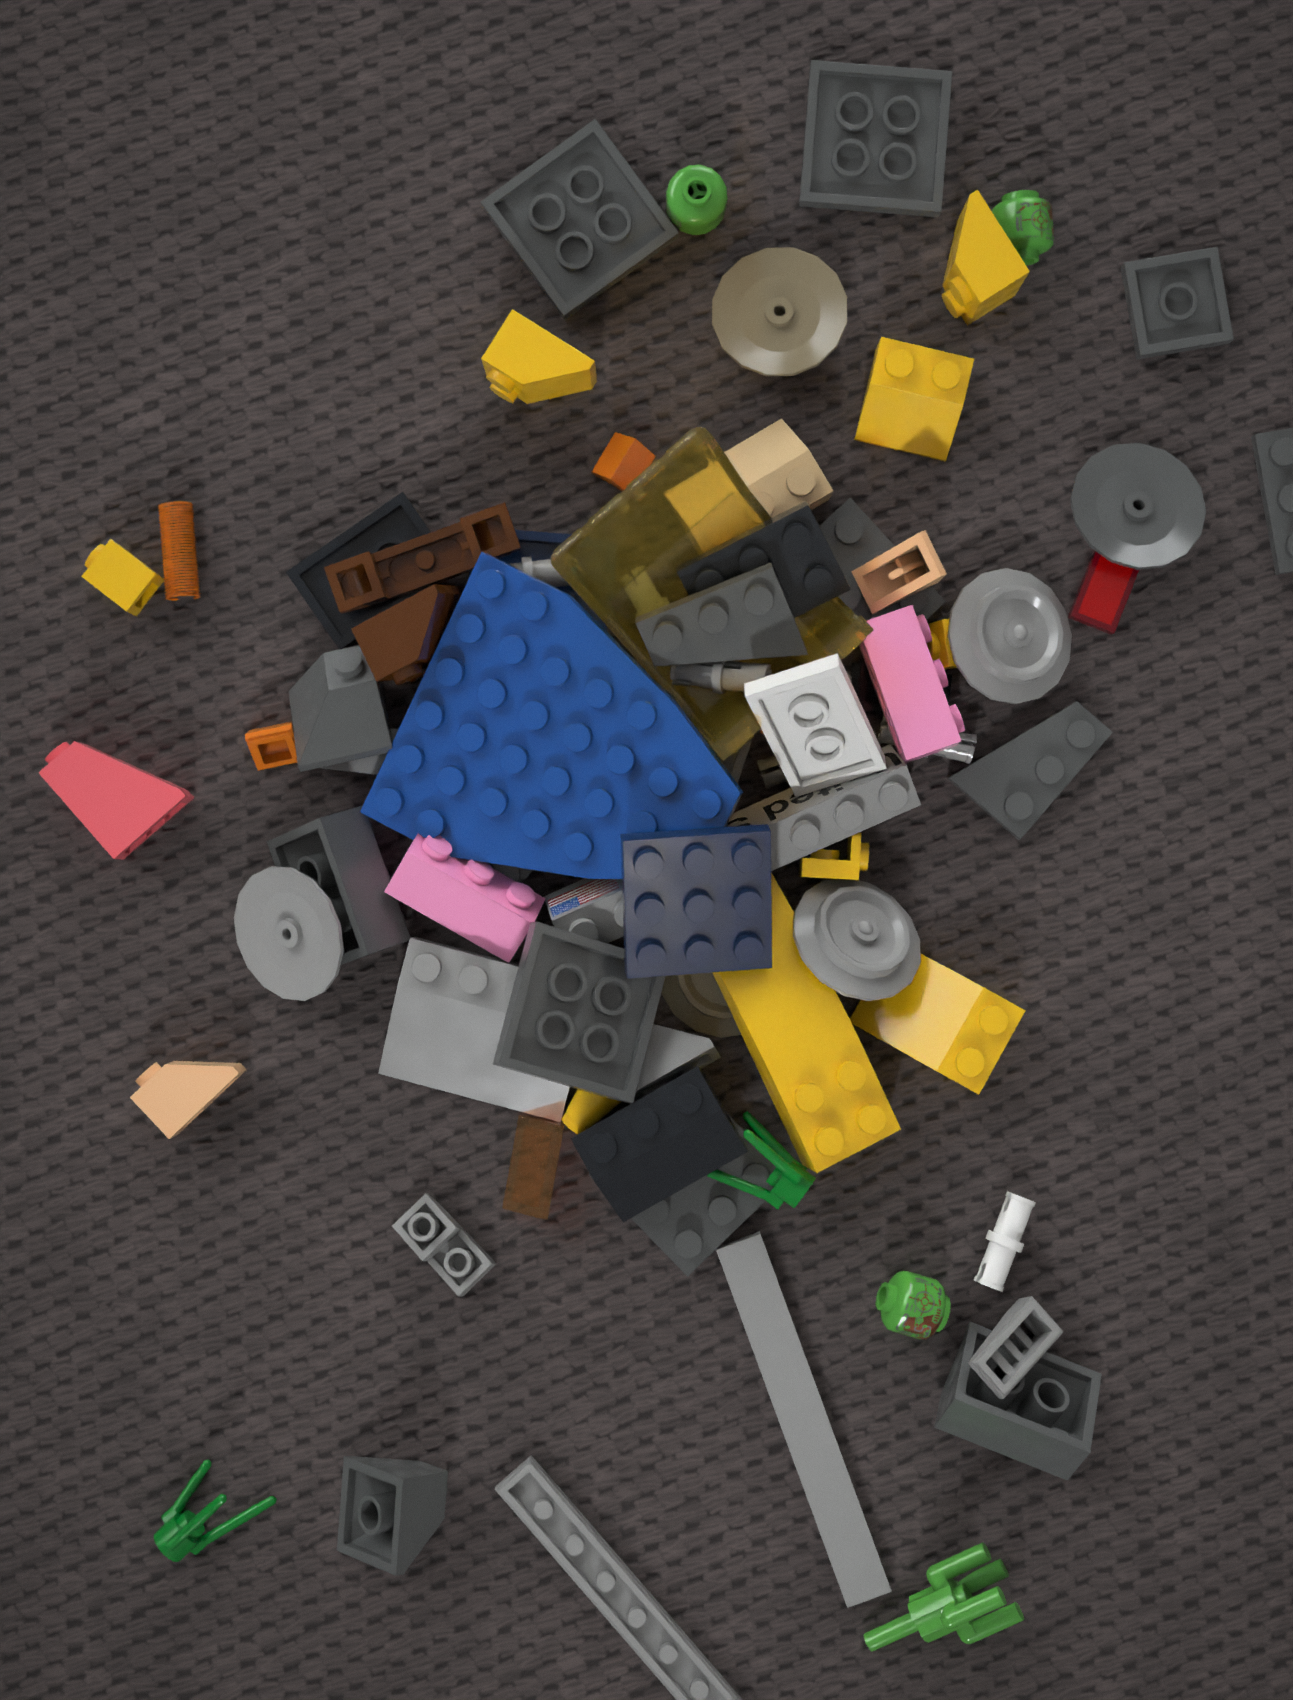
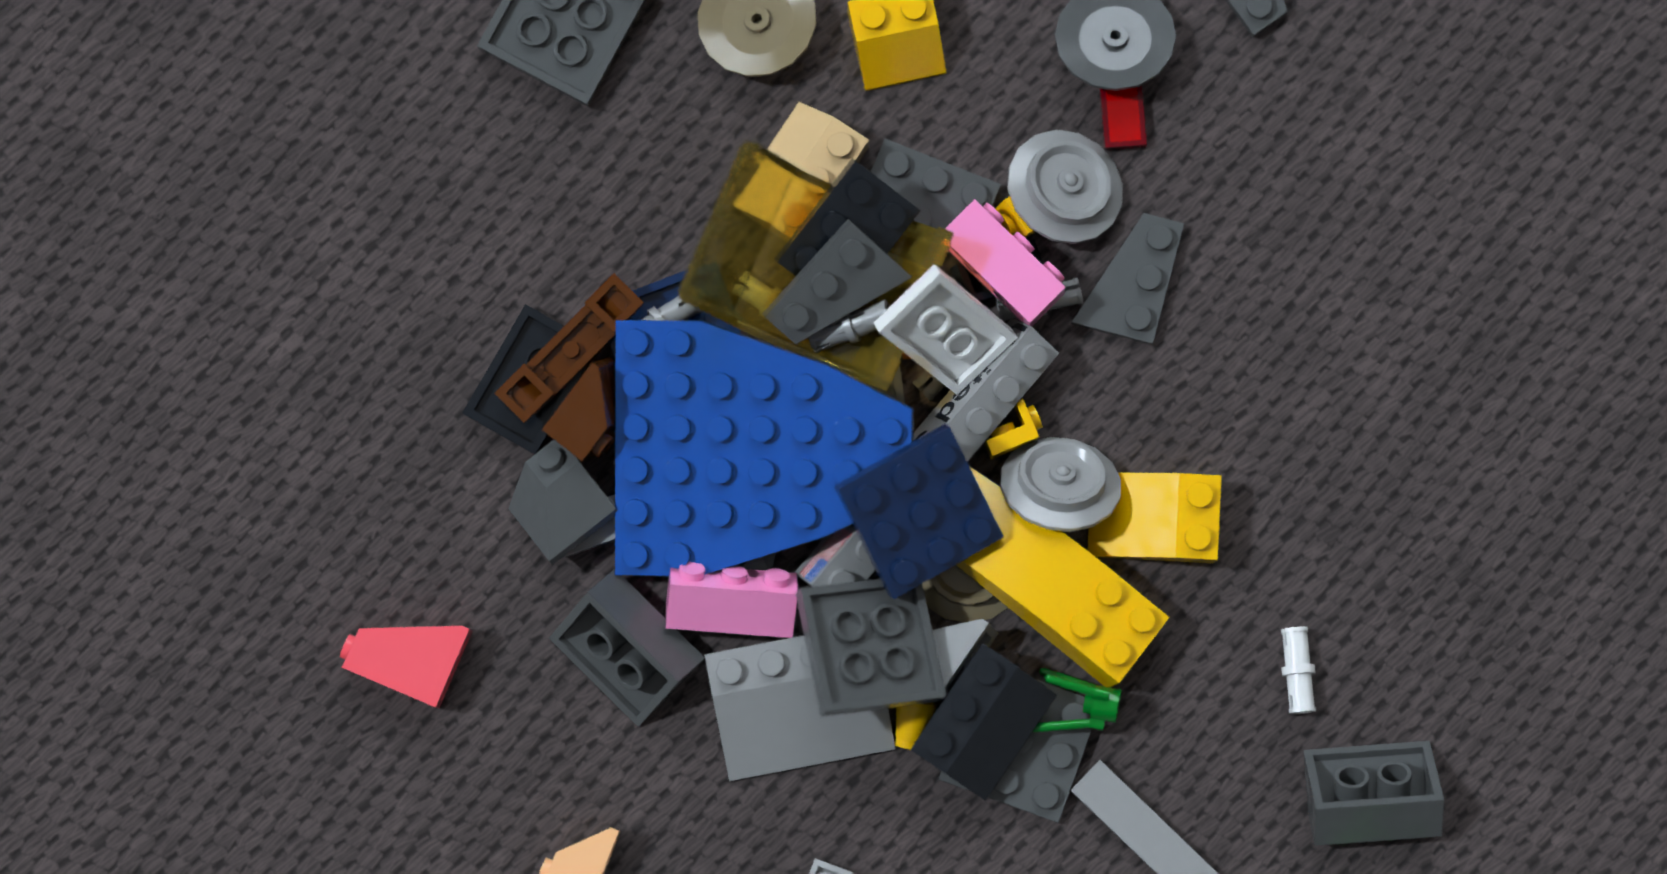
camera: 30 degrees left, 5 degrees down
(121, 576) = (331, 480): yellow brick -> none
(185, 512) = (349, 428): orange piece -> none
(272, 745) = (519, 557): orange slope -> none
(288, 933) = (604, 699): light grey piece -> none
(533, 1166) = (891, 794): clear orange slope -> none
(534, 363) = (584, 153): yellow slope -> none
(622, 461) = (690, 197): orange slope -> none
(899, 572) = (952, 179): light nougat slope -> none
(913, 1305) = (1250, 756): bright green head -> none
(1045, 1334) = (1358, 723): light grey slope -> none

